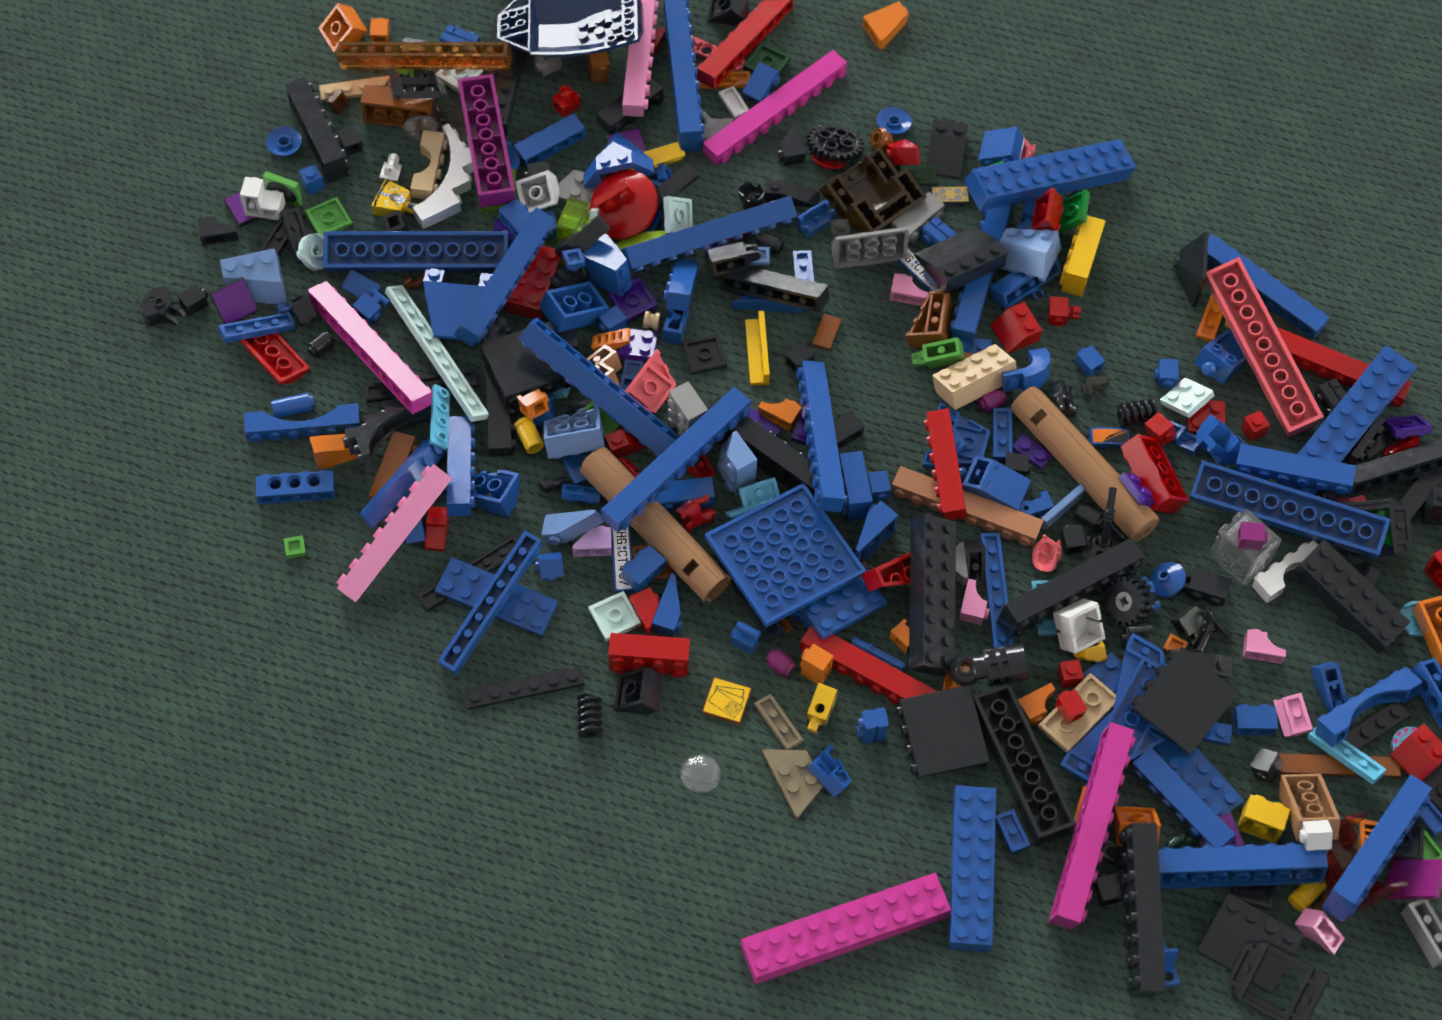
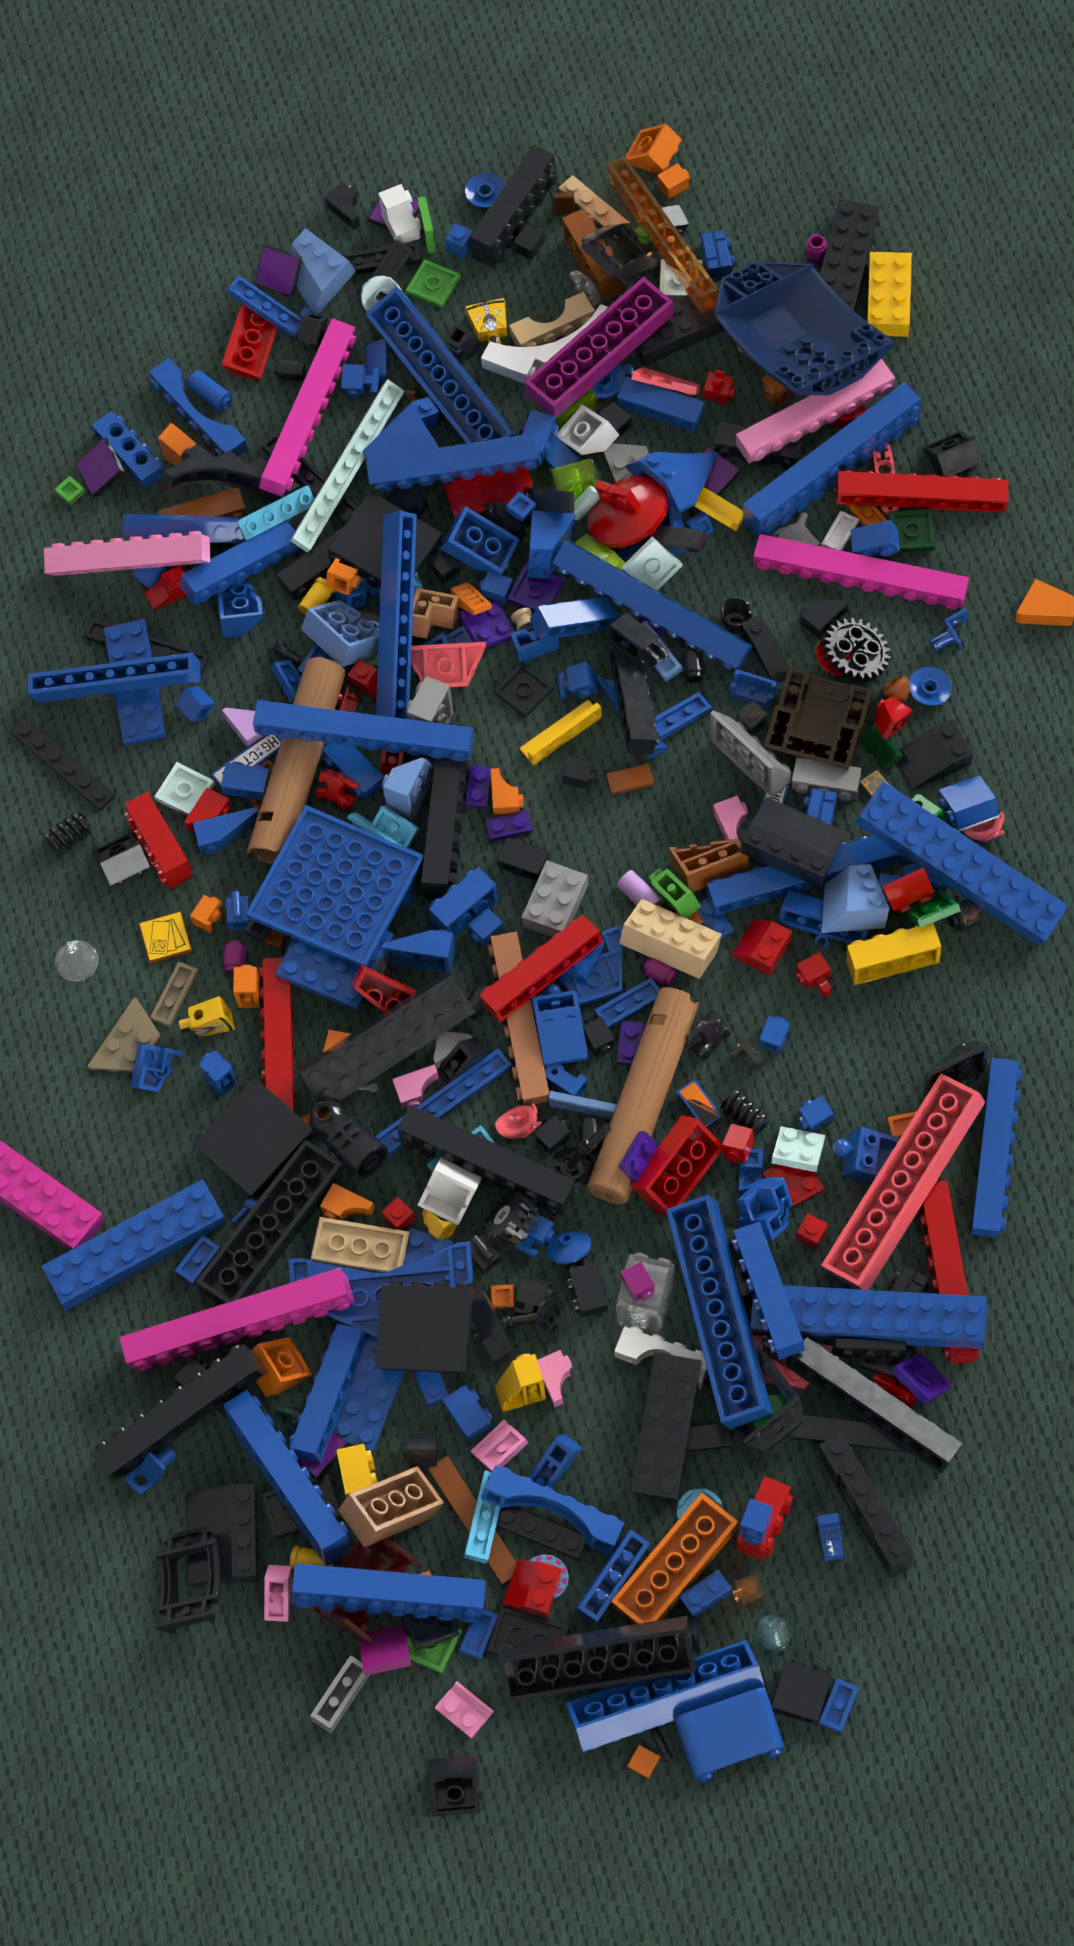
camera: 65 degrees right, 5 degrees up
(160, 308) = (229, 219): black hinge -> none
(193, 299) = (258, 235): black brick -> none
(295, 513) = (99, 467): none -> dark purple tile
(391, 168) = (522, 296): white hinge -> none
(536, 126) = (666, 381): none -> coral wing
(567, 526) = (240, 688): medium blue slope -> none
(728, 314) = (580, 681): none -> blue brick
(730, 659) = (206, 913): none -> orange brick
(821, 436) = (487, 838): blue brick -> none
(863, 87) = (950, 635): none -> blue bracket
(869, 648) = (302, 1033): blue axle -> none
(891, 430) = (554, 899): none -> light grey brick
(918, 377) = (637, 889): none -> lavender brick
(992, 768) = (248, 1205): none -> blue hand
(1034, 374) = (712, 990): blue arch -> none
(1071, 706) = (353, 1231): red brick -> none
(1261, 665) = (521, 1383): none -> yellow wedge
(1316, 835) = (345, 1519): white brick -> none

